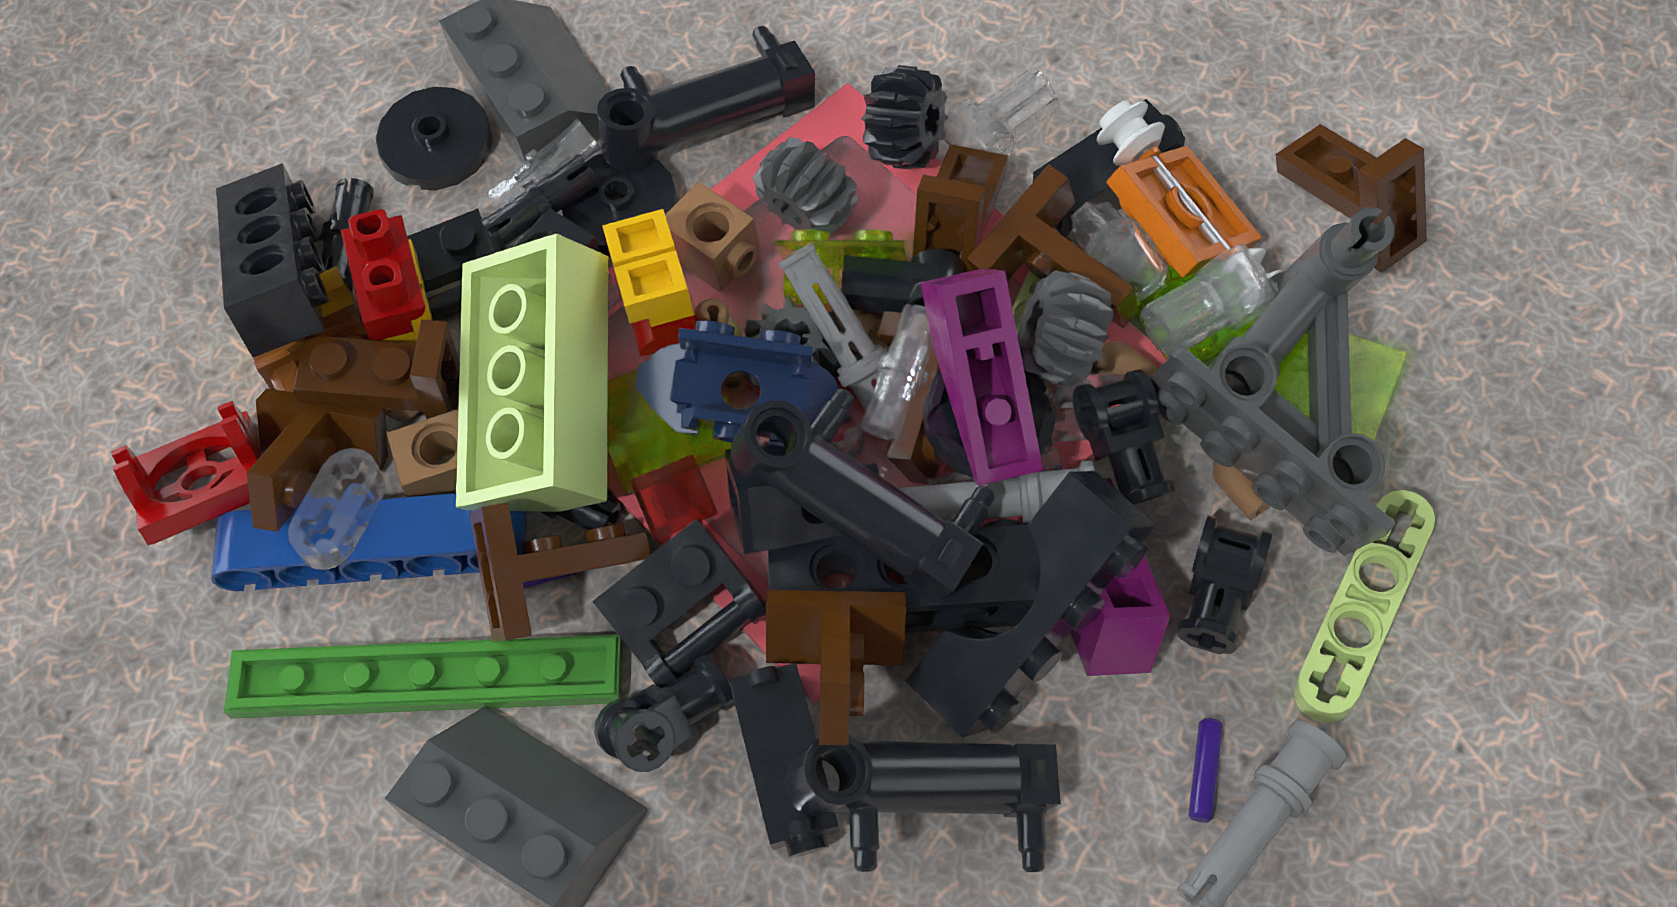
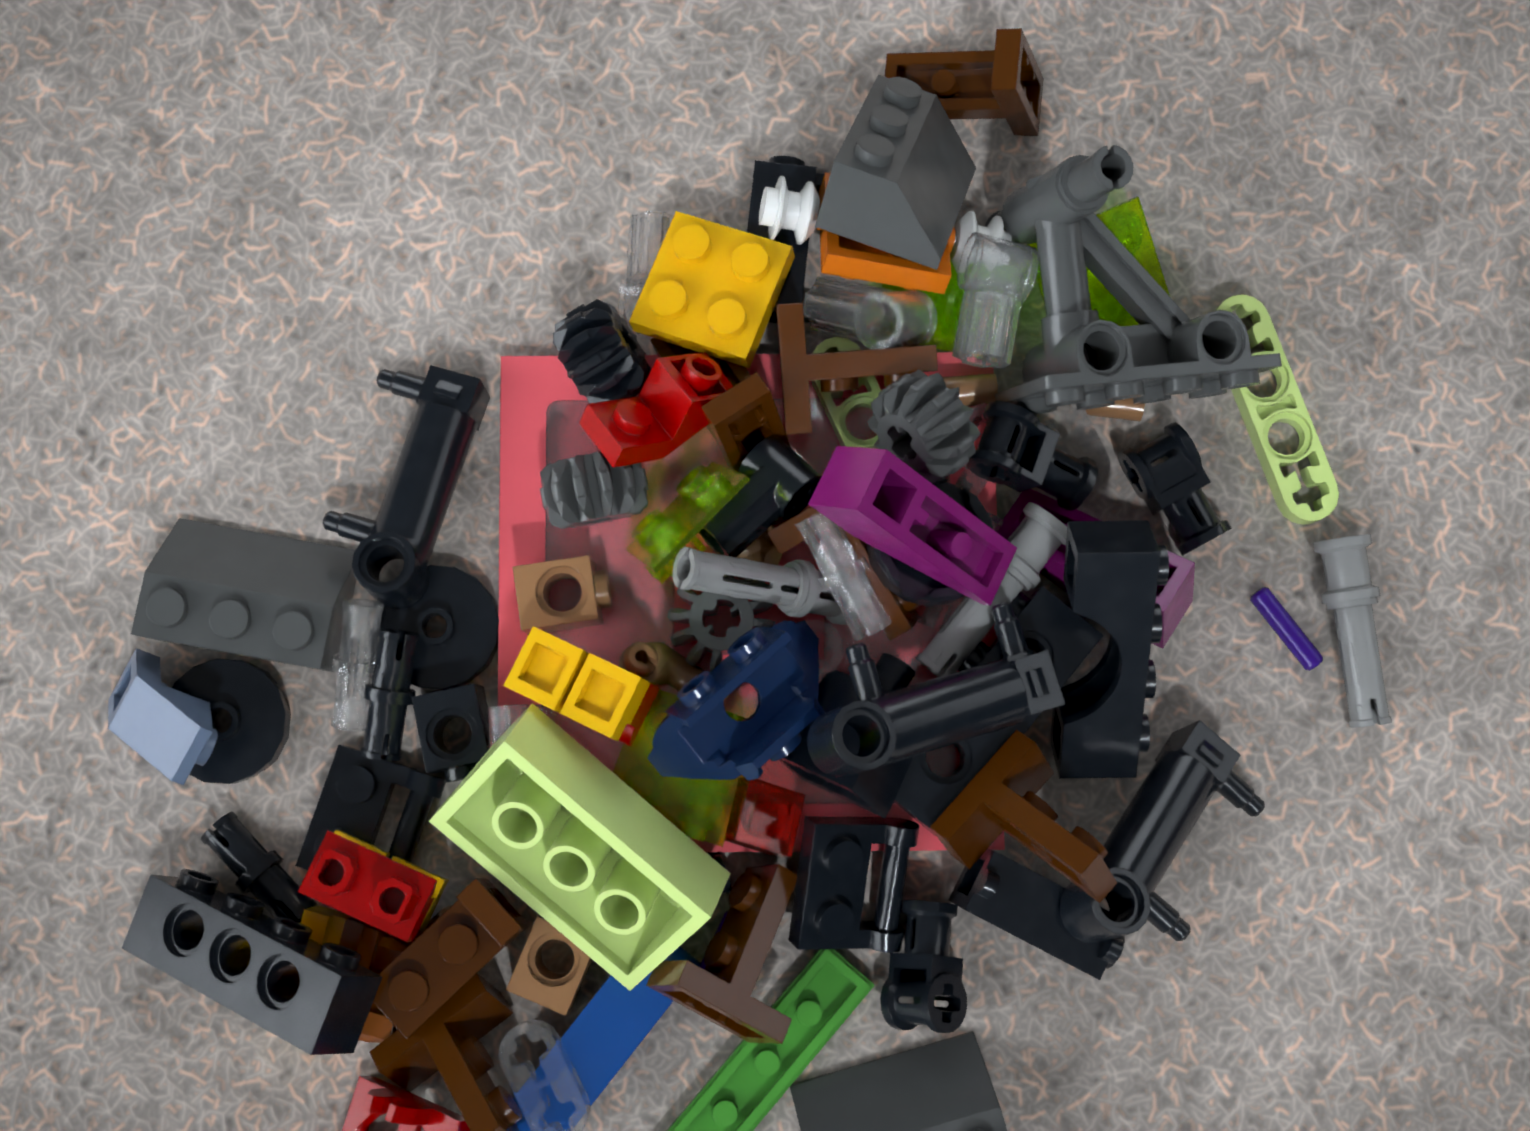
camera: 55 degrees left, 20 degrees up
(397, 88) = (160, 722): none -> slope
(889, 179) = (662, 413): none -> red slope
(1018, 134) = (712, 289): none -> yellow plate
(1234, 173) = (898, 175): none -> dark grey slope

